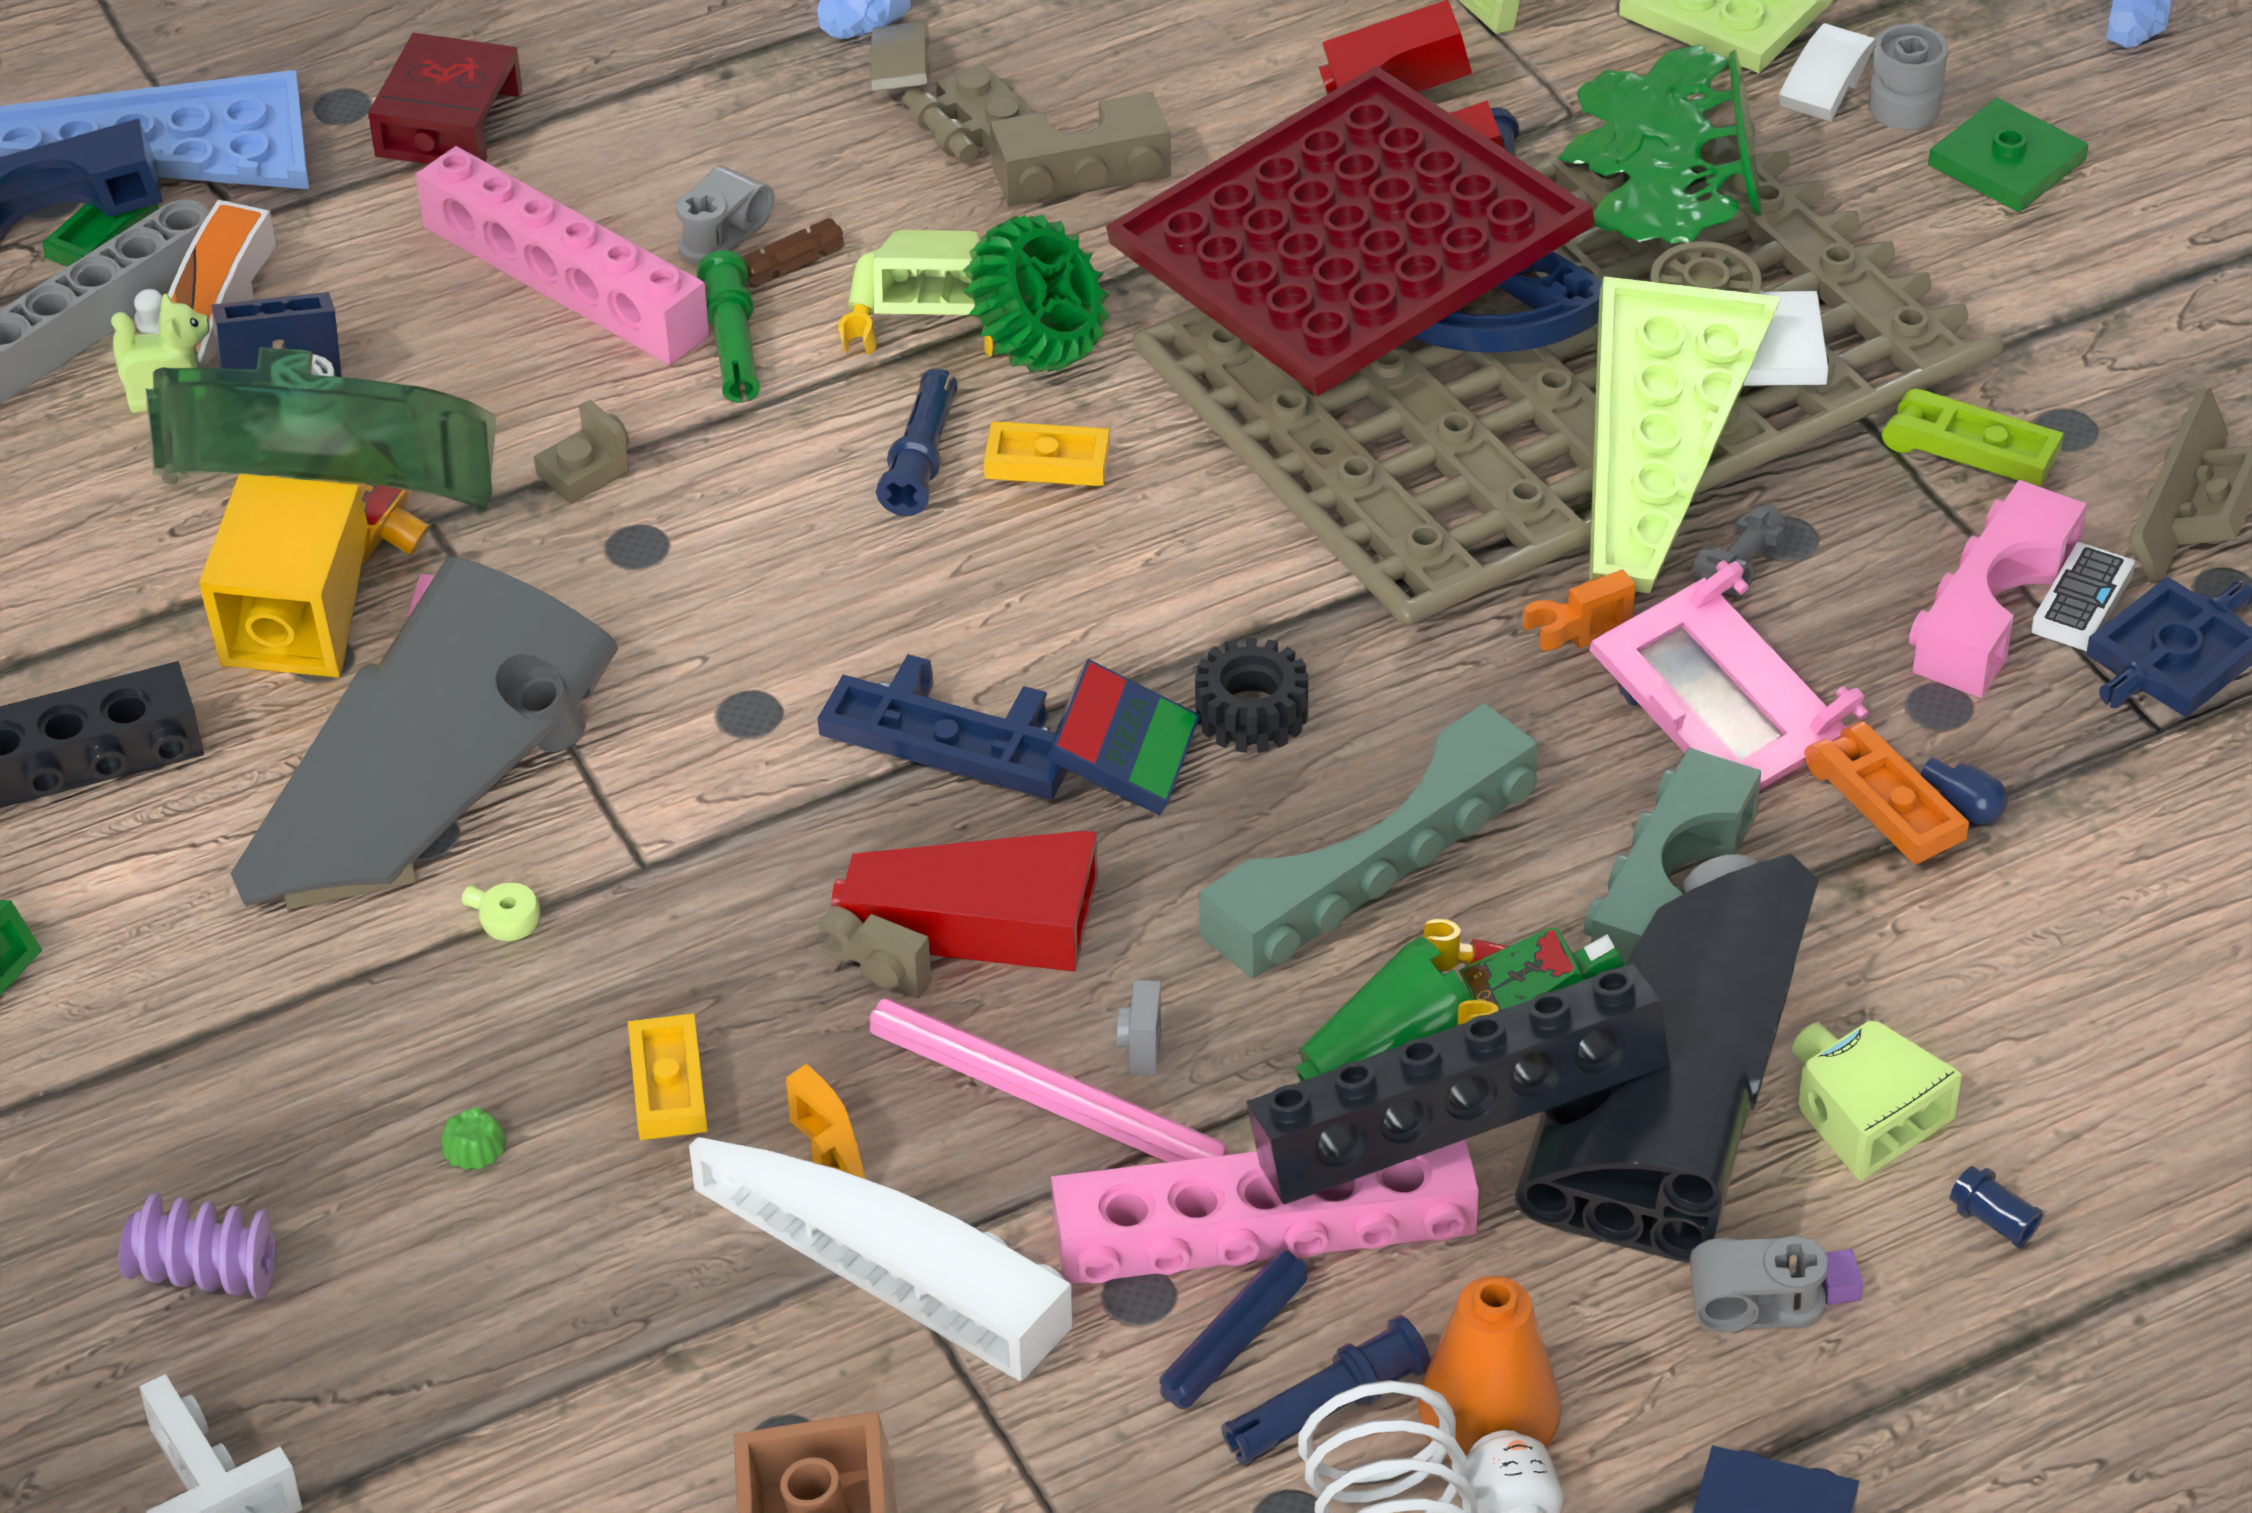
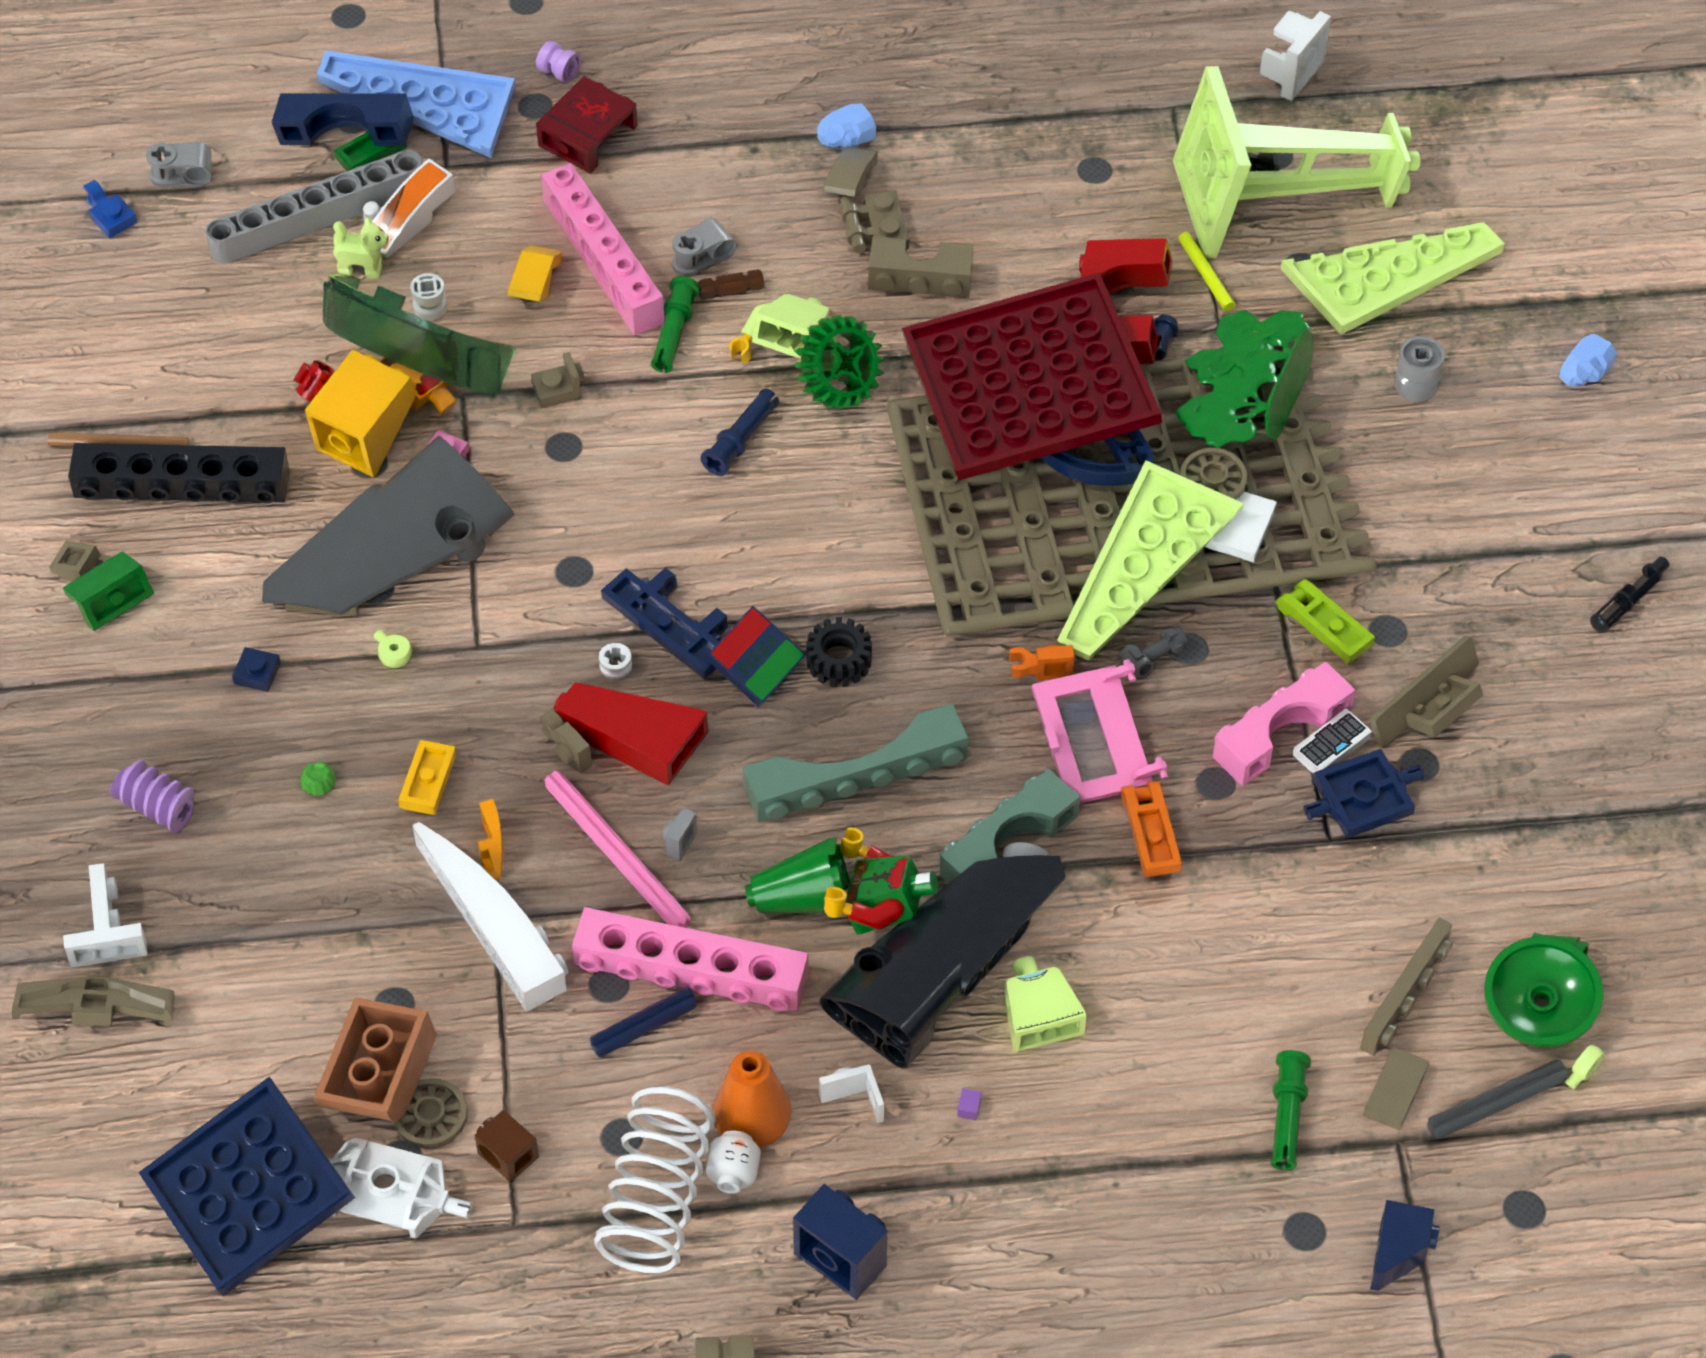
camera: 20 degrees right, 10 degrees up
(175, 560) = (312, 379): none -> red gear
(281, 1009) = (256, 669): none -> dark blue plate
(299, 320) = (421, 253): dark blue brick -> none
(354, 32) = (558, 61): none -> lavender wheel
(467, 318) = (534, 272): none -> yellow slope
(891, 800) = (611, 651): none -> white bush
(1047, 453) = (805, 462): yellow plate -> none
(1381, 1358) = (689, 1071): dark blue pin -> none
(1458, 1083) = (804, 933): black brick -> none
(1516, 48) = (1206, 271): none -> neon yellow bar
(1648, 1294) = (852, 1081): none -> white bracket
(1751, 1283) = (919, 1093): light grey piece -> none
(1825, 71) = (1377, 346): white slope -> none
(1968, 789) = (1196, 842): dark blue cylinder -> none
(1995, 1205) = (1067, 1086): dark blue pin -> none
(2008, 154) = (1455, 437): green plate -> none

